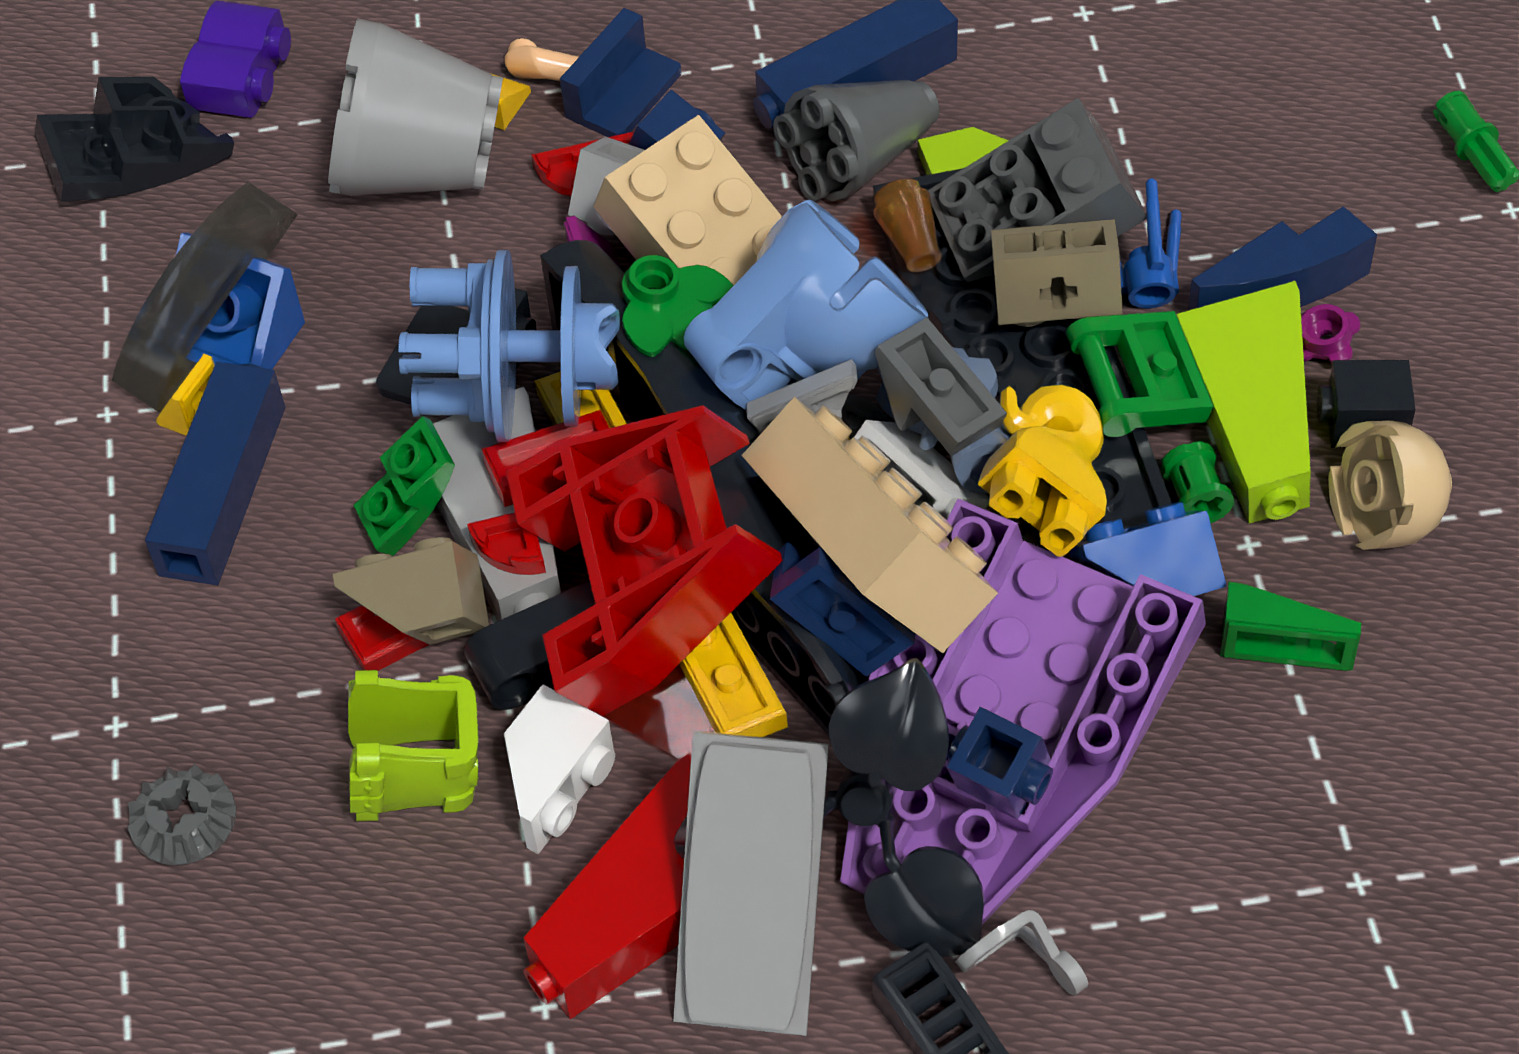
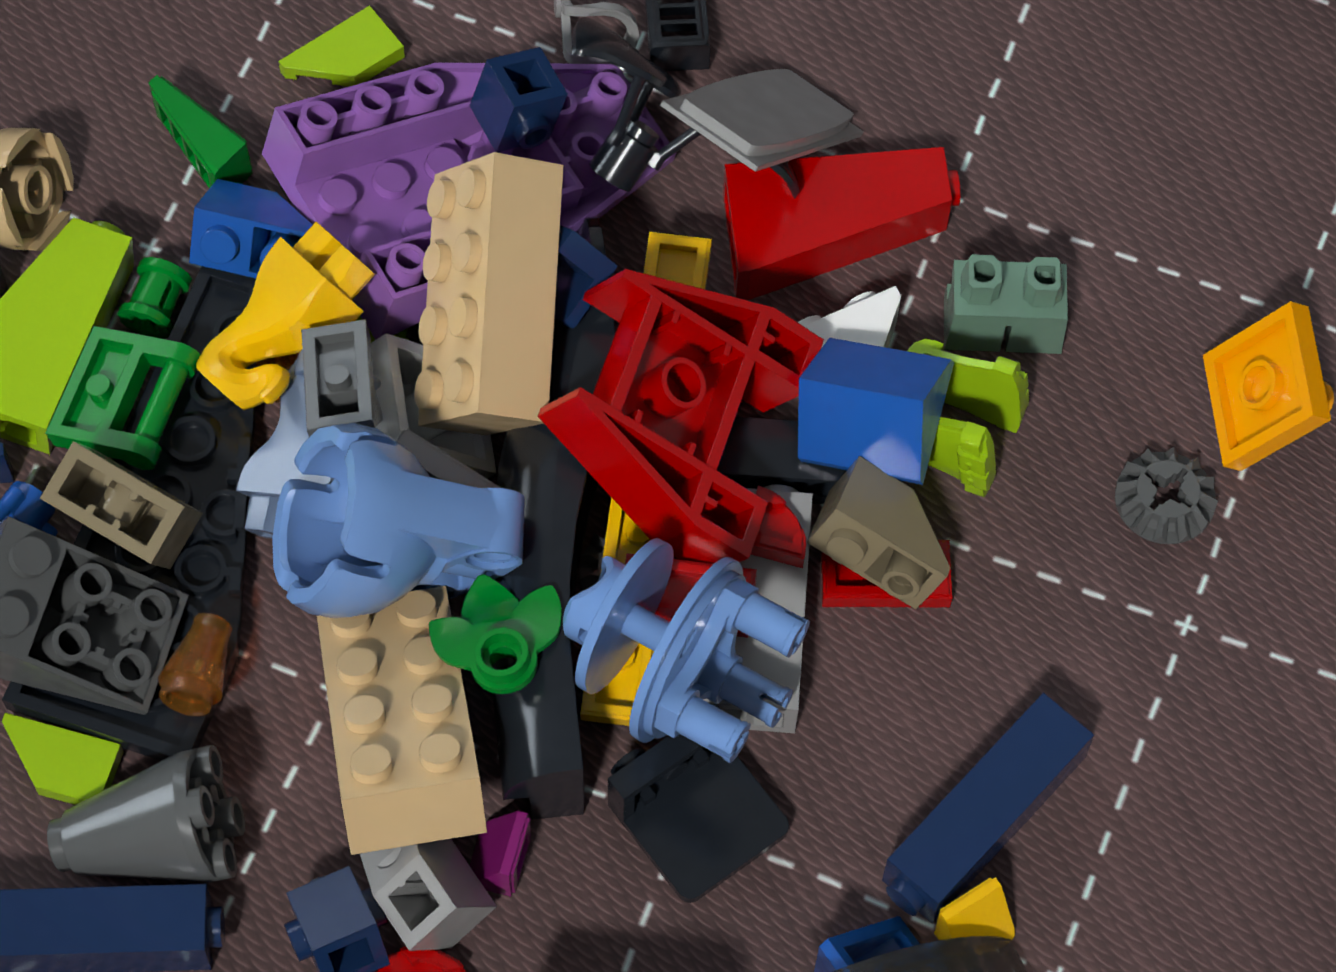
camera: 155 degrees left, 10 degrees up
(112, 929) = (1267, 386): none -> light orange tile
(409, 491) = (835, 664): green slope -> none
(429, 864) = (1003, 295): none -> sand green hips
(477, 667) = (872, 407): none -> blue slope
(1227, 802) = (347, 52): none -> lime tile

